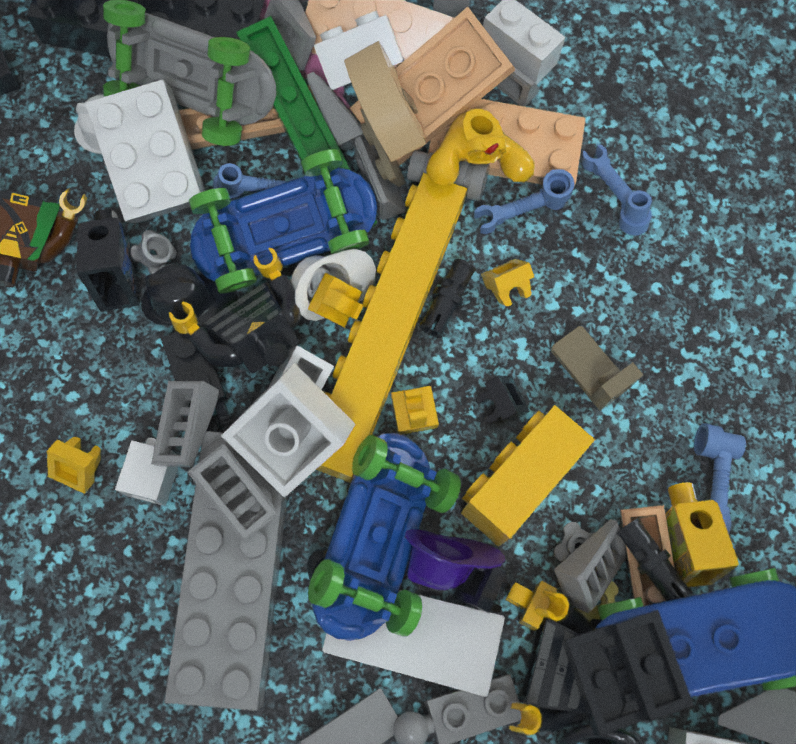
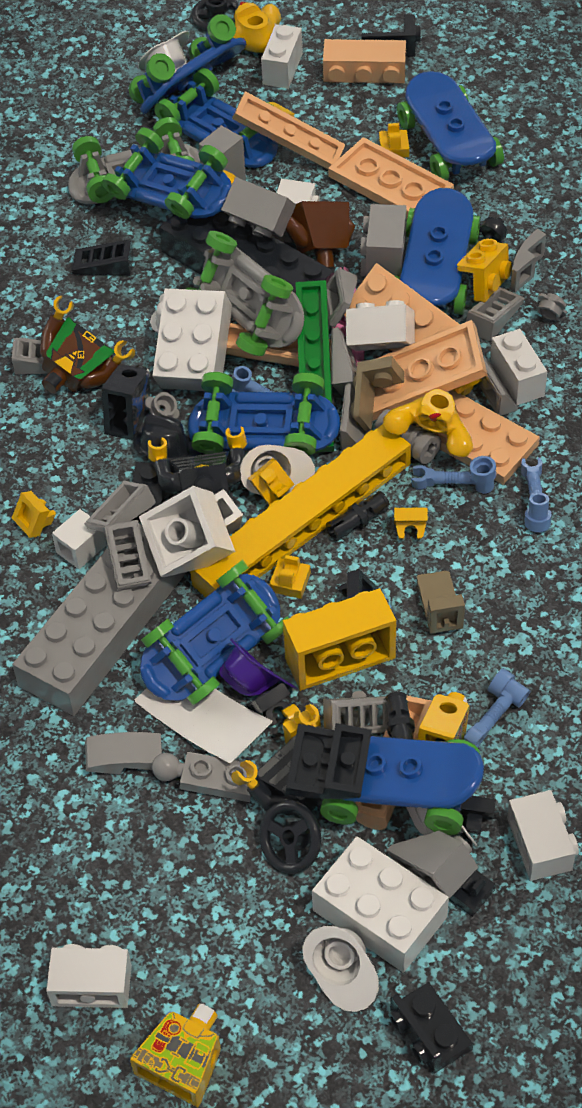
camera: 35 degrees right, 20 degrees down
(383, 101) = (372, 350): tan brick -> none

